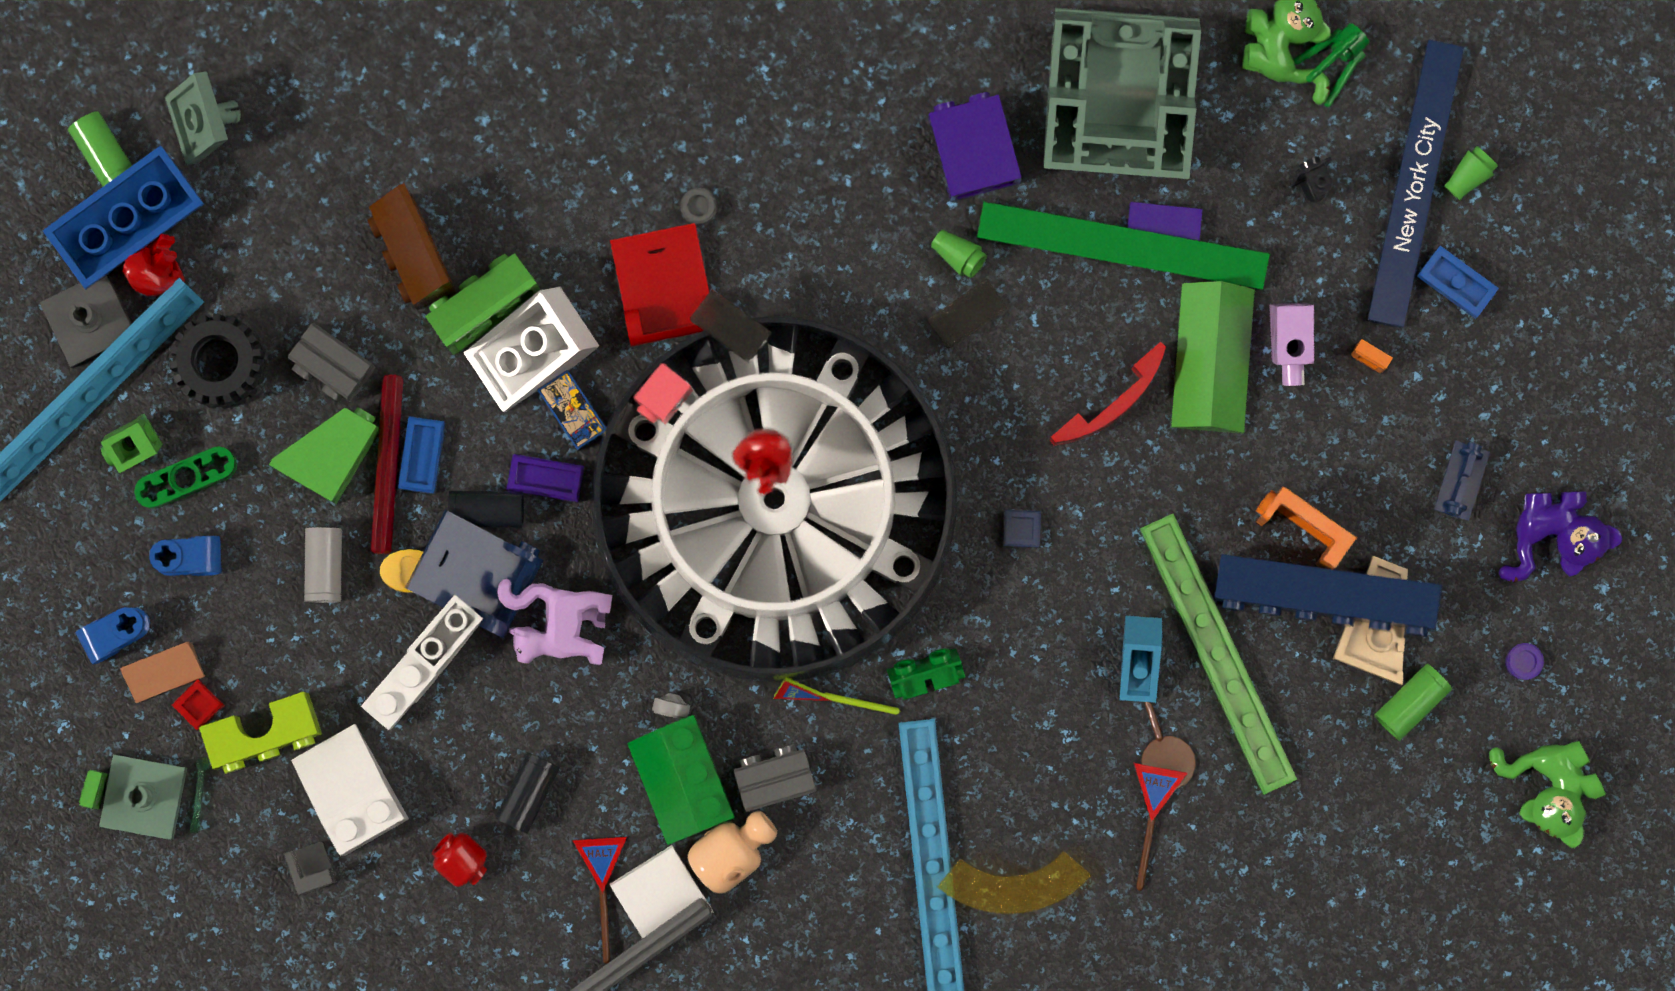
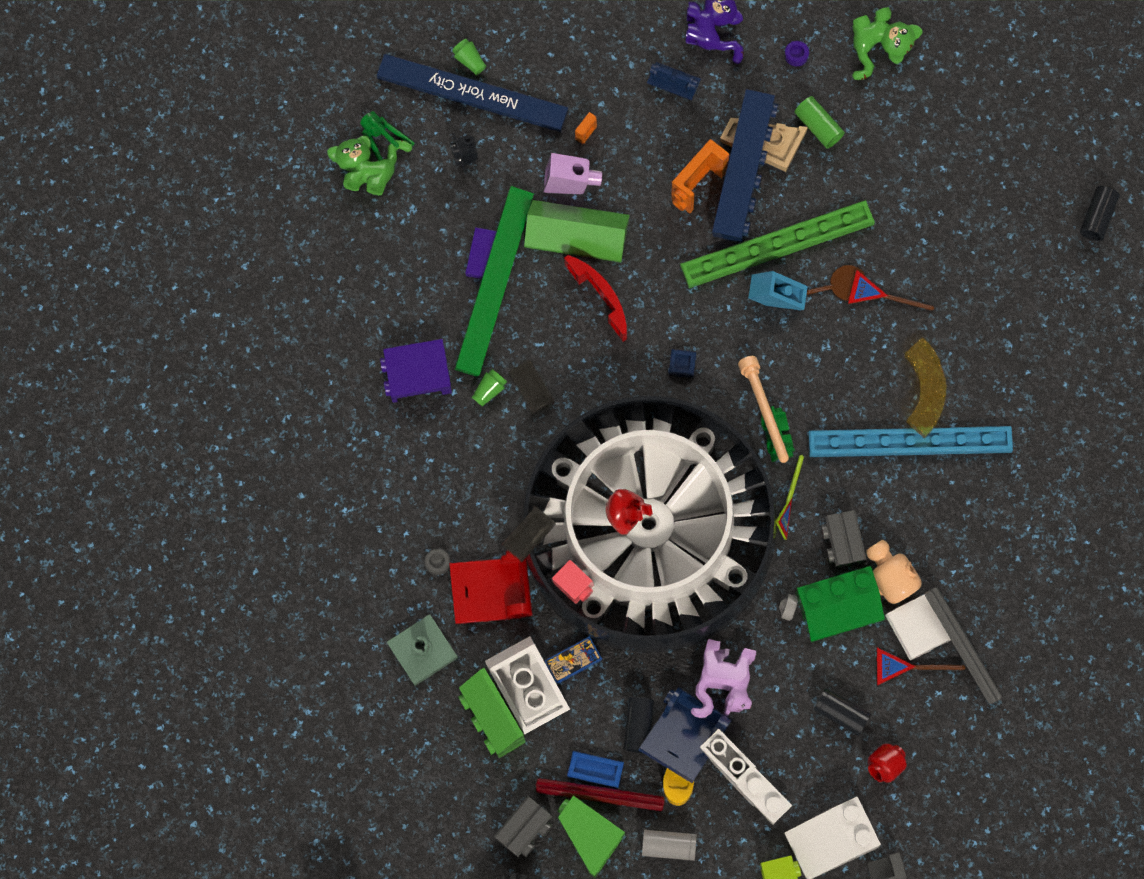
camera: 85 degrees left, 10 degrees down
(410, 248) = (446, 762): reddish brown slope -> none
(545, 478) = (619, 683): dark purple tile -> none
(570, 198) = (422, 650): none -> sand green tile
(1020, 626) = (750, 368): none -> light nougat piece
(1122, 93) = (391, 269): sand green slope -> none
(1457, 282) = (541, 71): blue plate -> none

